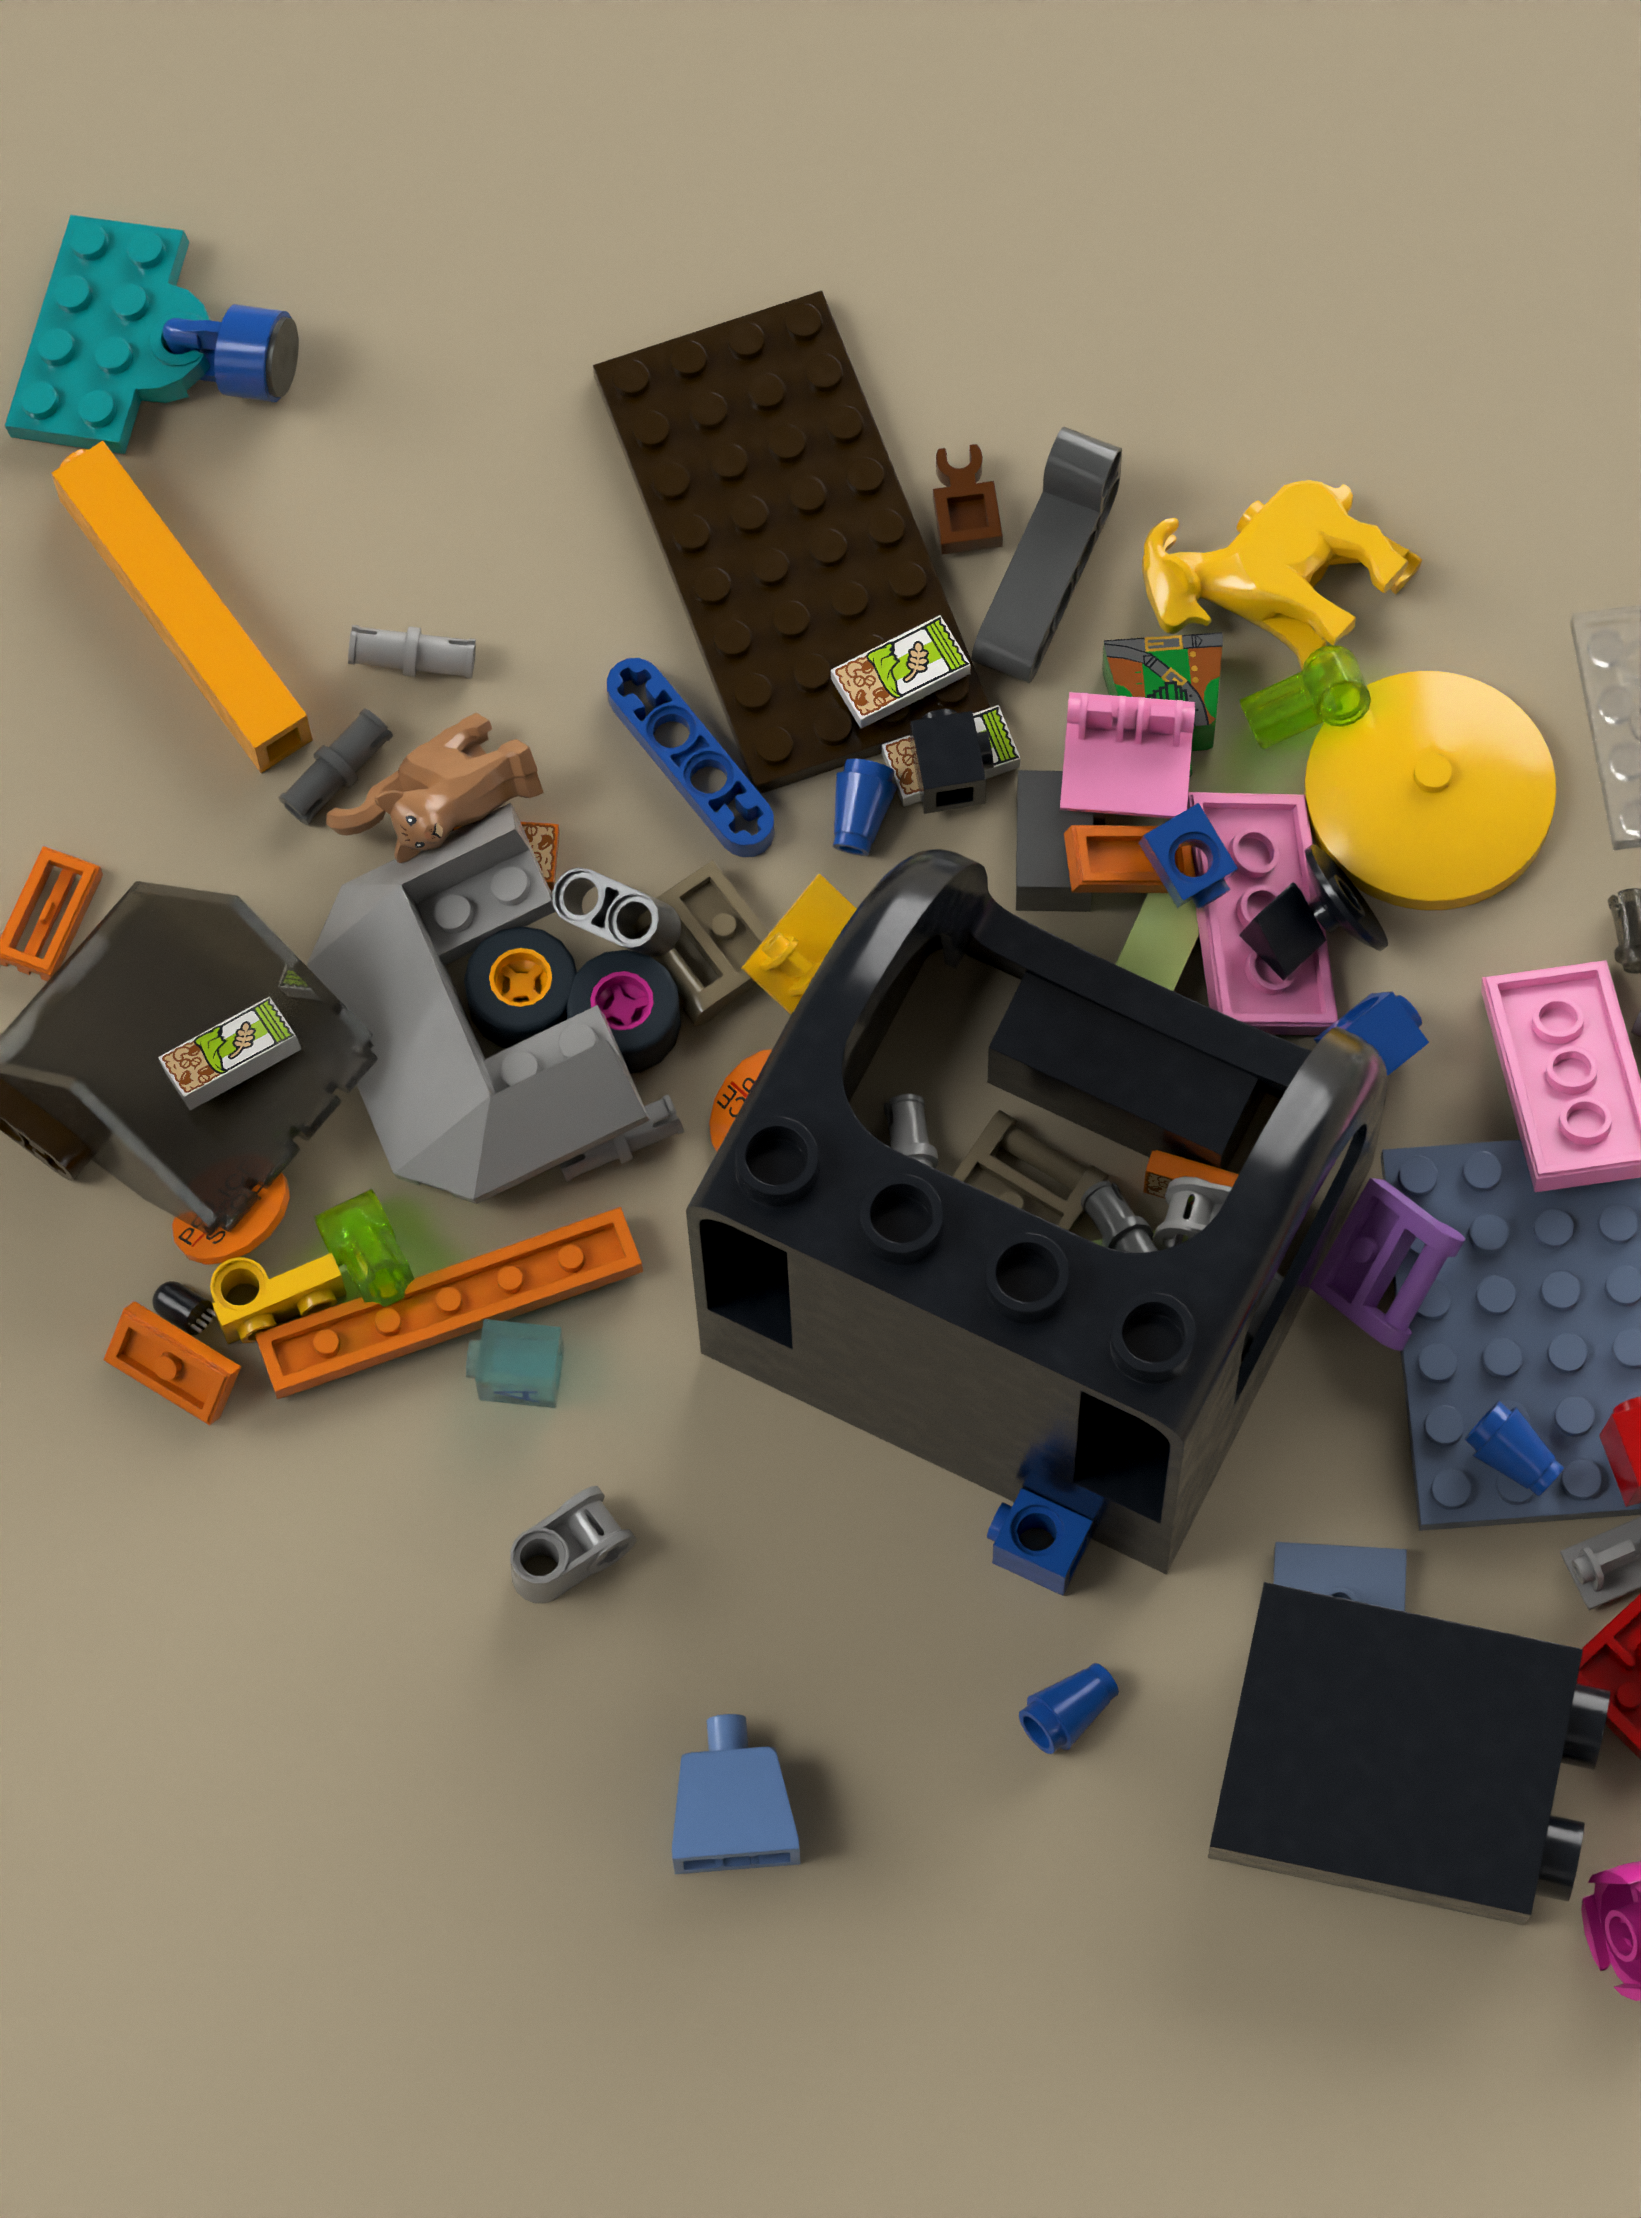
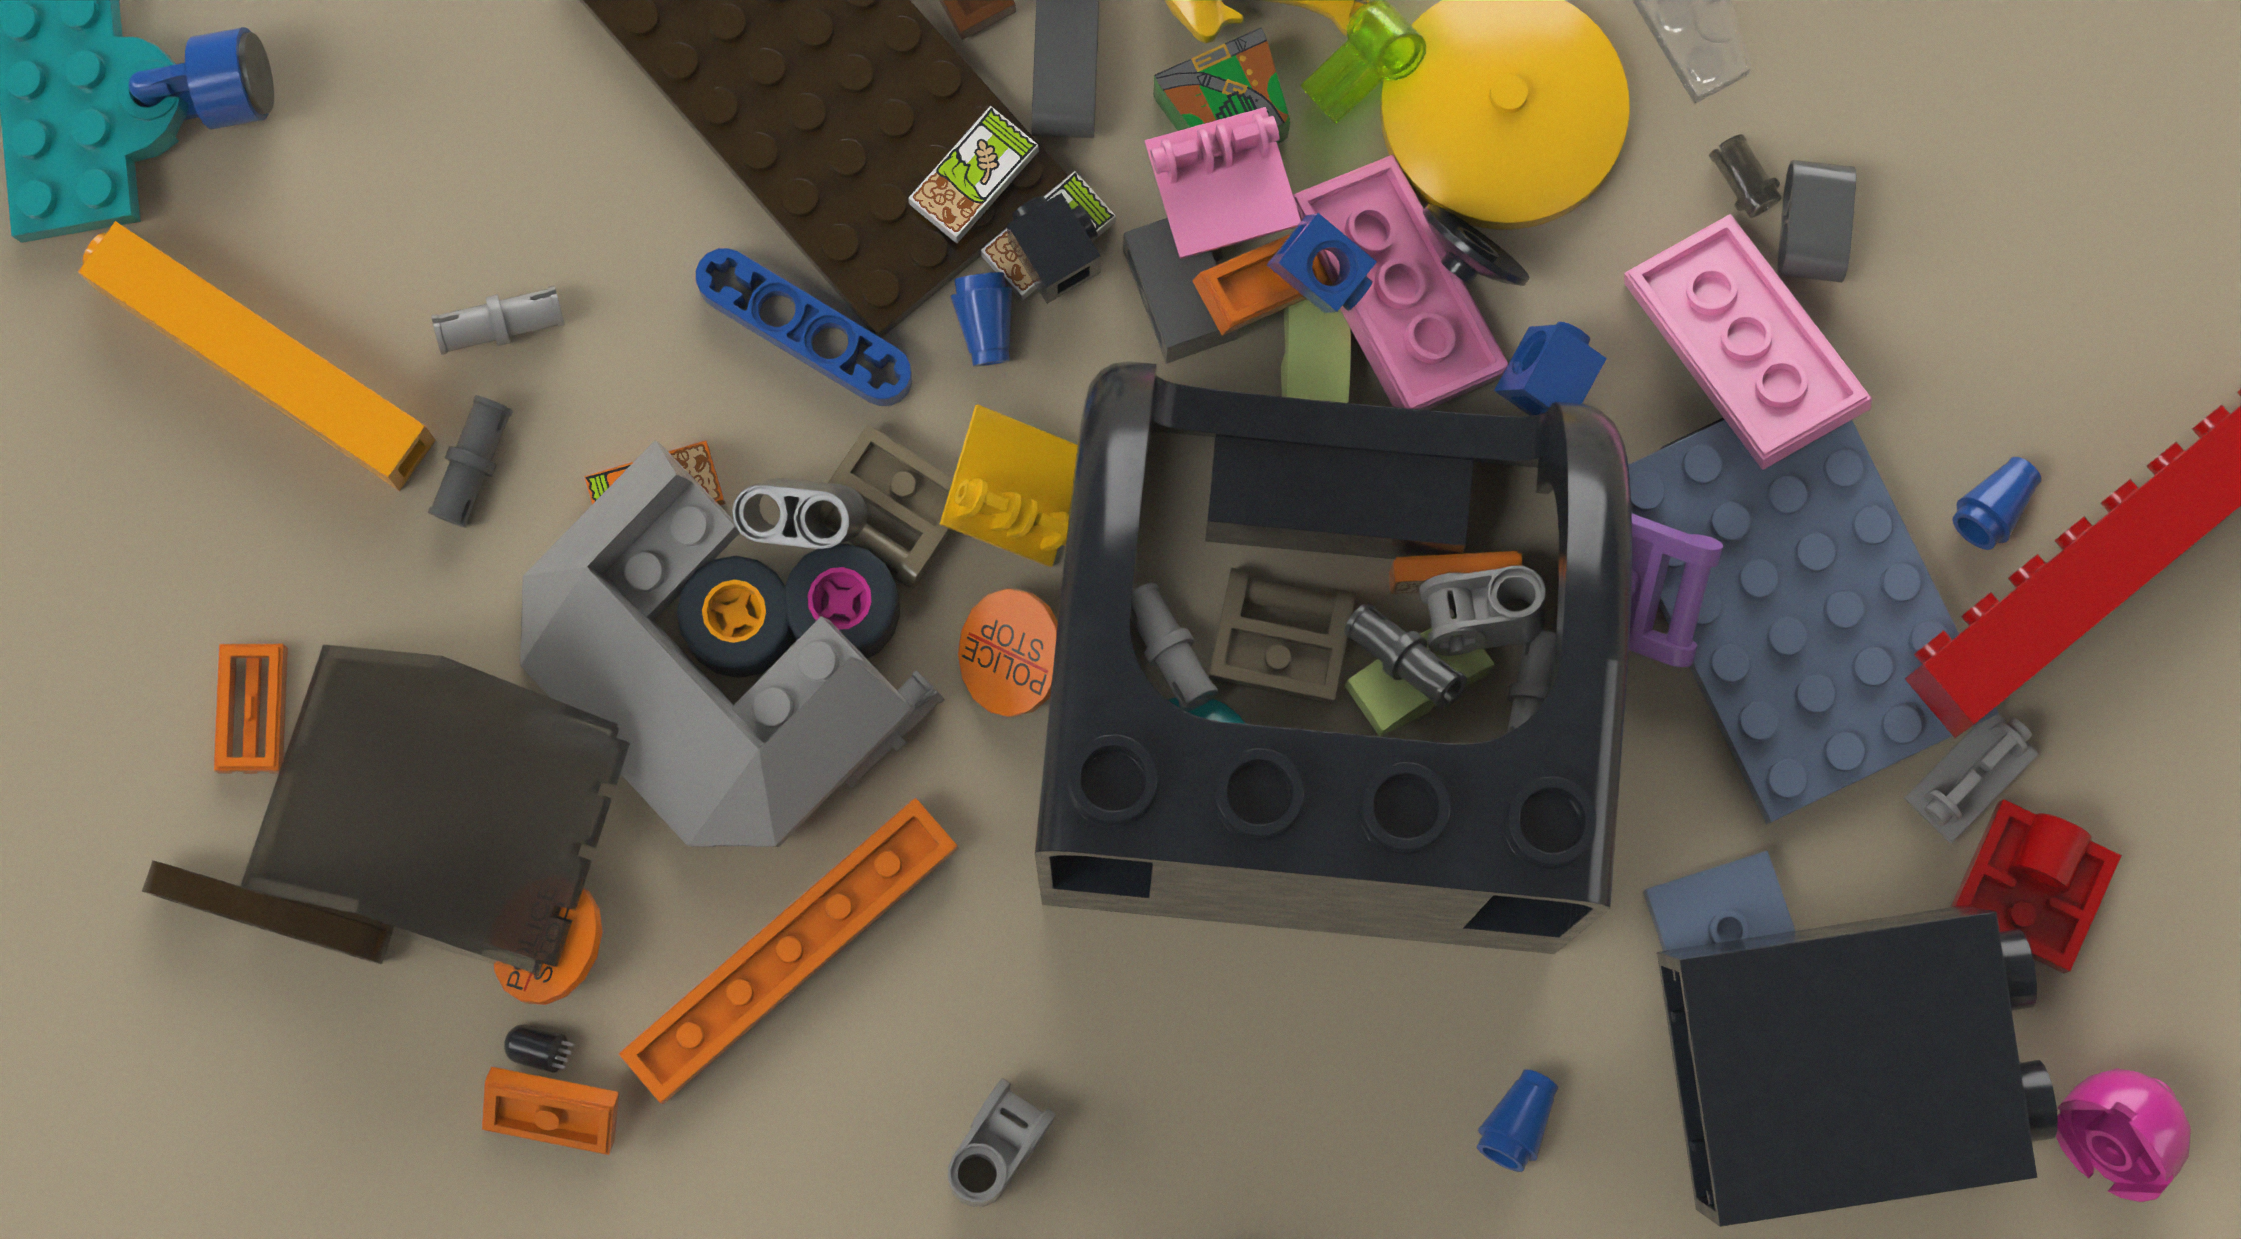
camera: 25 degrees left, 10 degrees up
(229, 1053) = (483, 785): tile -> none
(292, 1293) = (649, 991): yellow plate -> none
(366, 1246) = (684, 924): clear neon green piece -> none
(443, 788) = (590, 447): medium nougat animal -> none
(517, 1363) = (876, 986): clear light blue brick -> none
(1049, 1567) = (1457, 959): blue brick -> none
(1285, 932) = (1431, 300): black slope -> none
(1514, 1448) = (1836, 724): blue cone -> none

